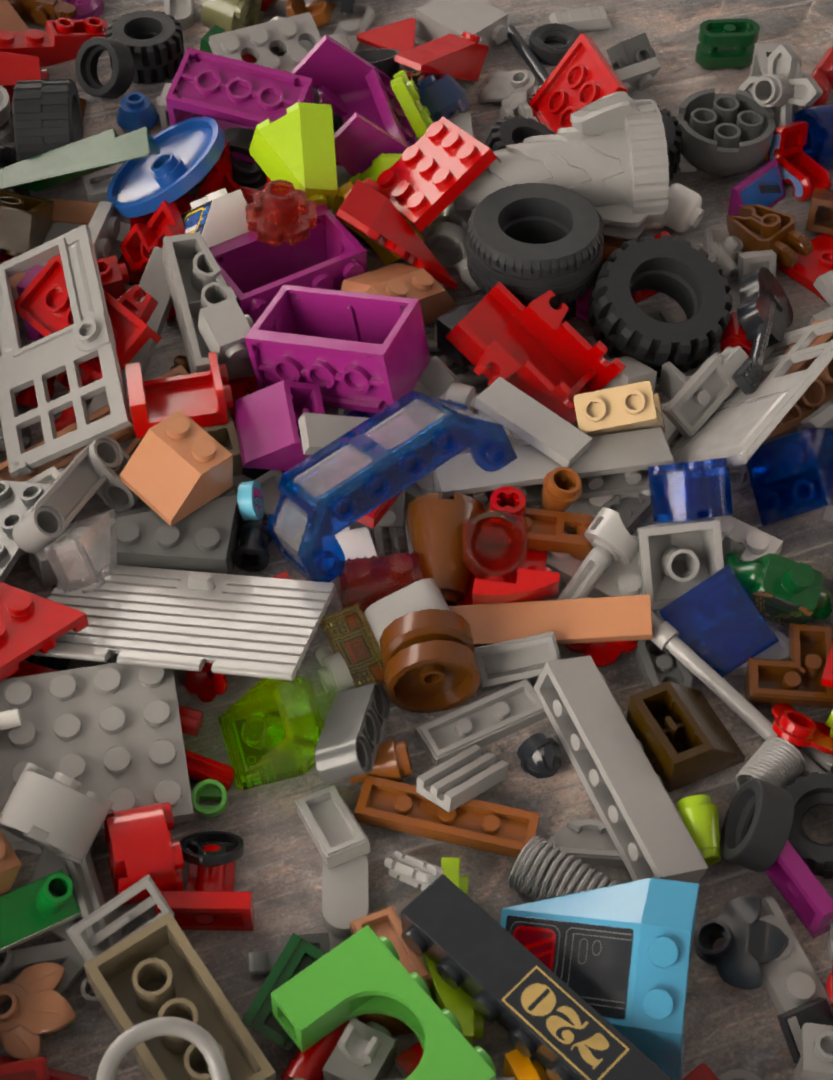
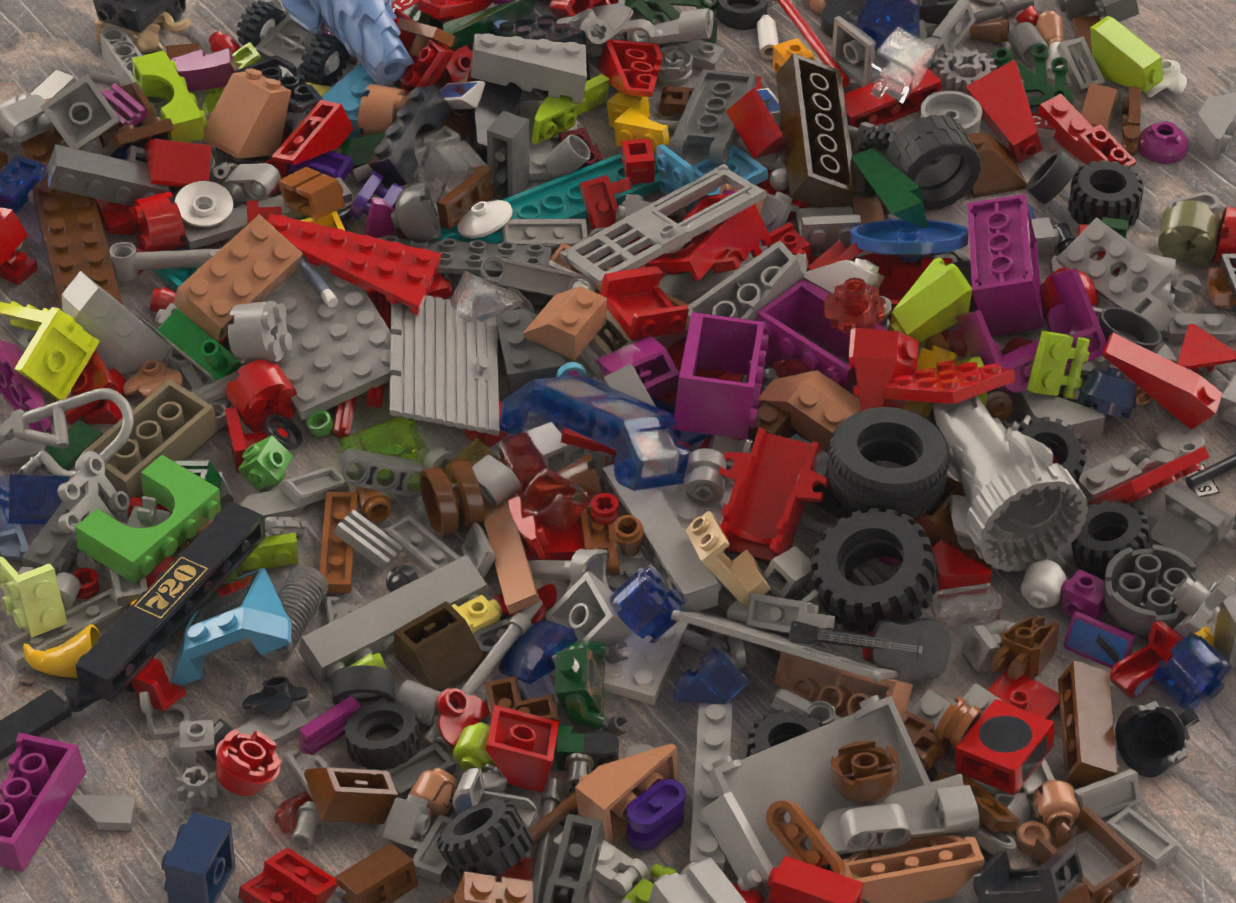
camera: 75 degrees right, 5 degrees down
(155, 898) = (223, 401): light grey tile -> none
(225, 329) = (710, 300): light grey brick -> none
(277, 877) = (265, 463): none -> bright green brick
(533, 422) = (684, 499): light grey tile -> none
(626, 677) = (479, 612): none -> light yellow brick
(709, 180) = (1084, 595): none -> magenta brick

